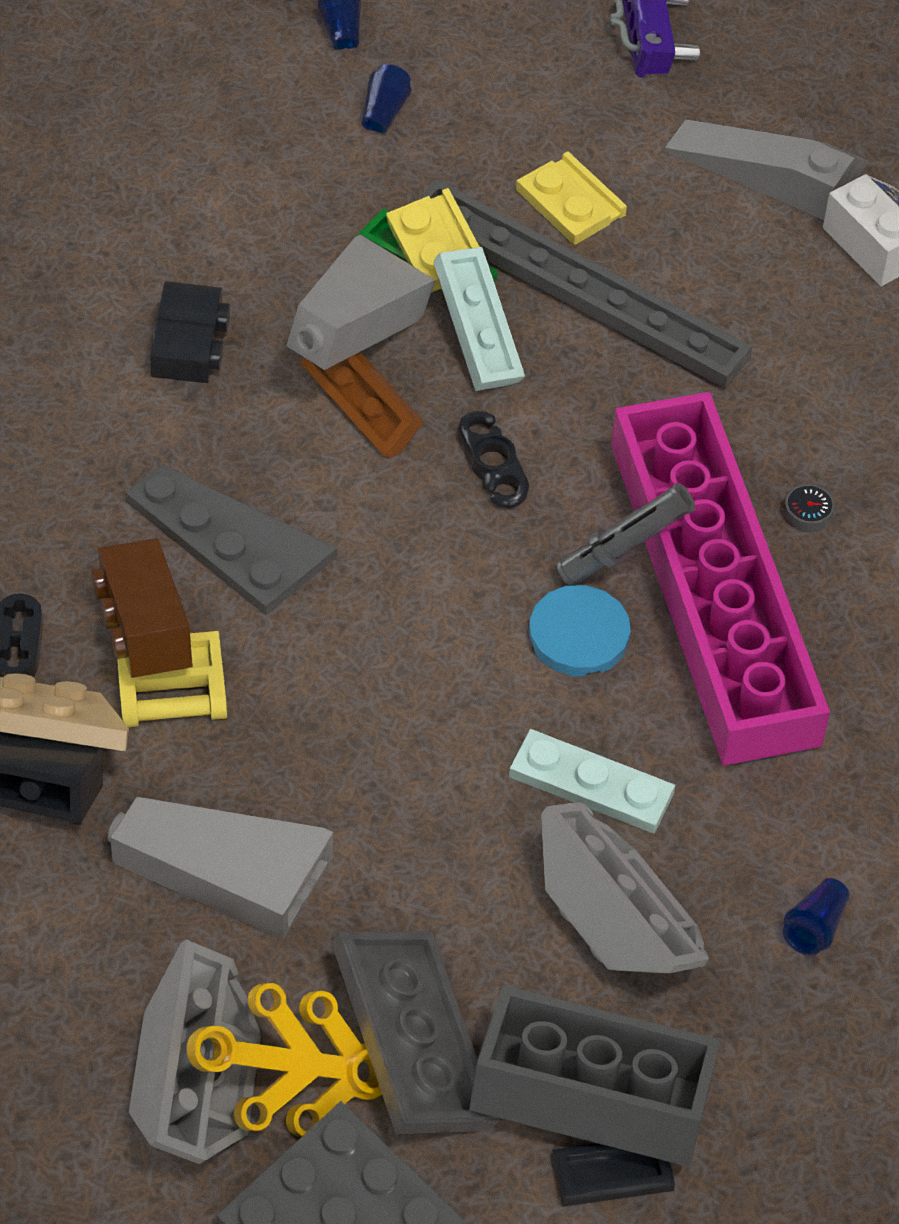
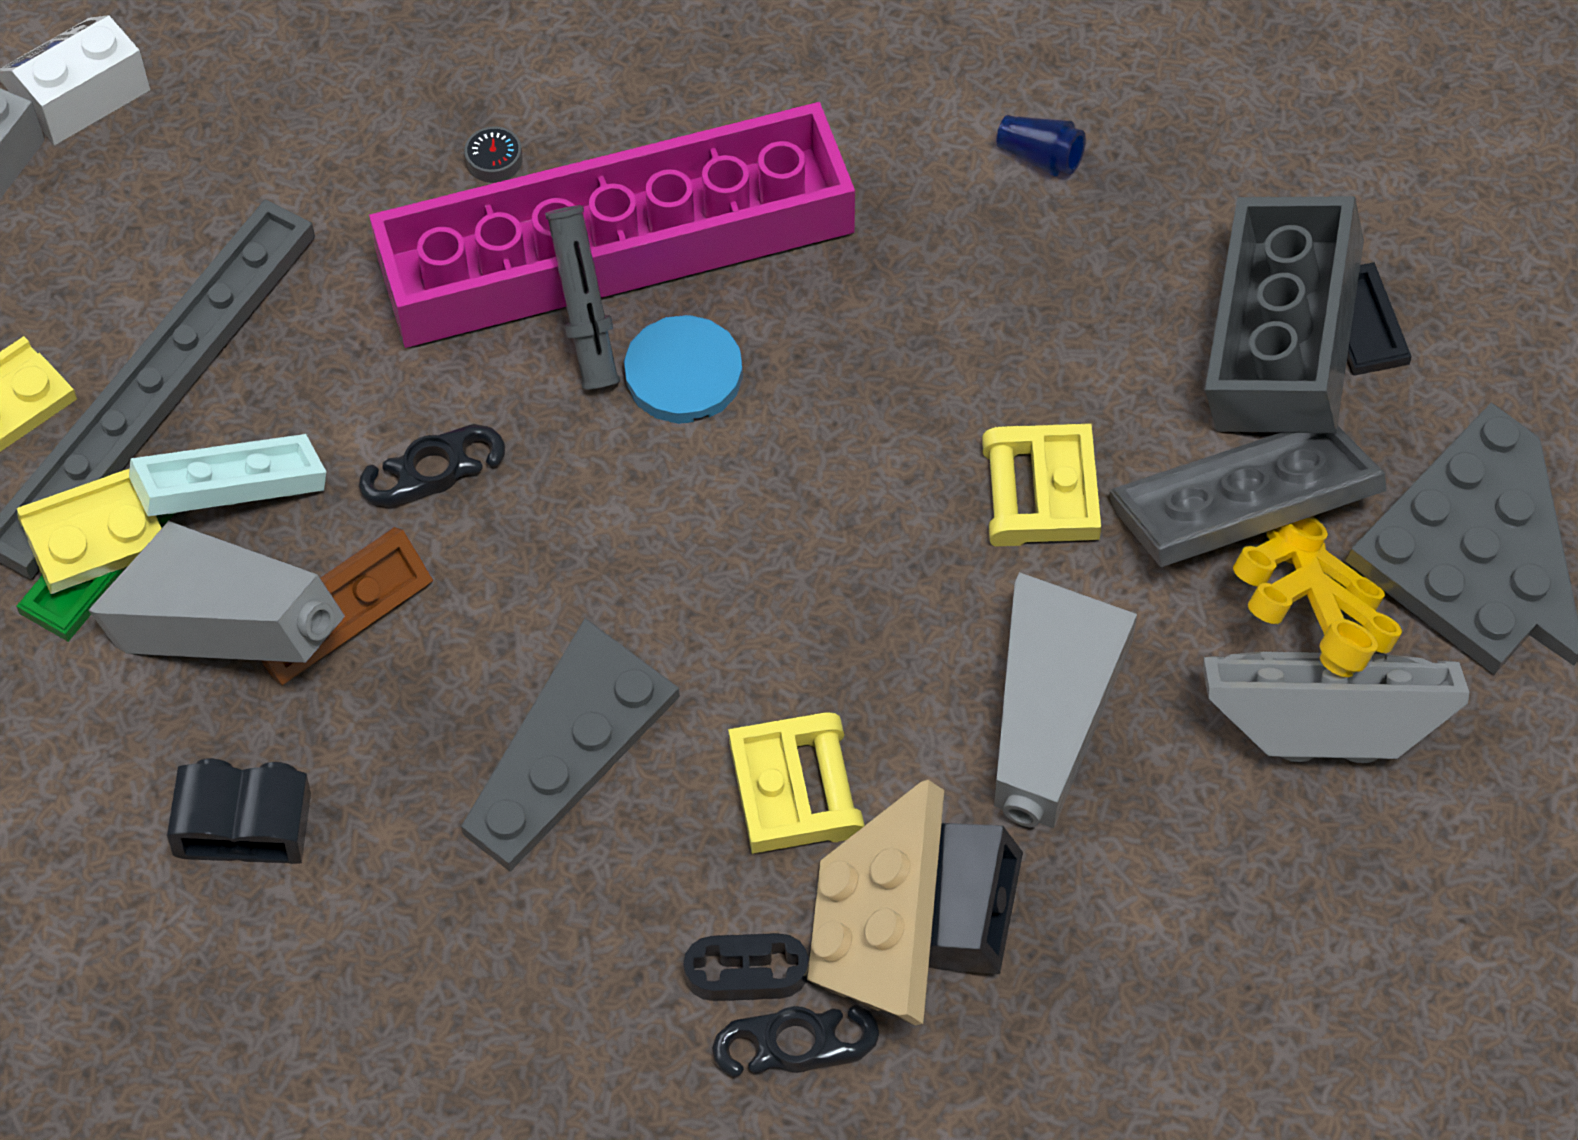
camera: 90 degrees left, 5 degrees up
(142, 608) = (714, 802): reddish brown brick -> none
(441, 893) = (1061, 479): none -> light yellow plate
(592, 780) = (889, 351): light aqua plate -> none
(615, 896) = (1070, 301): light grey wedge -> none

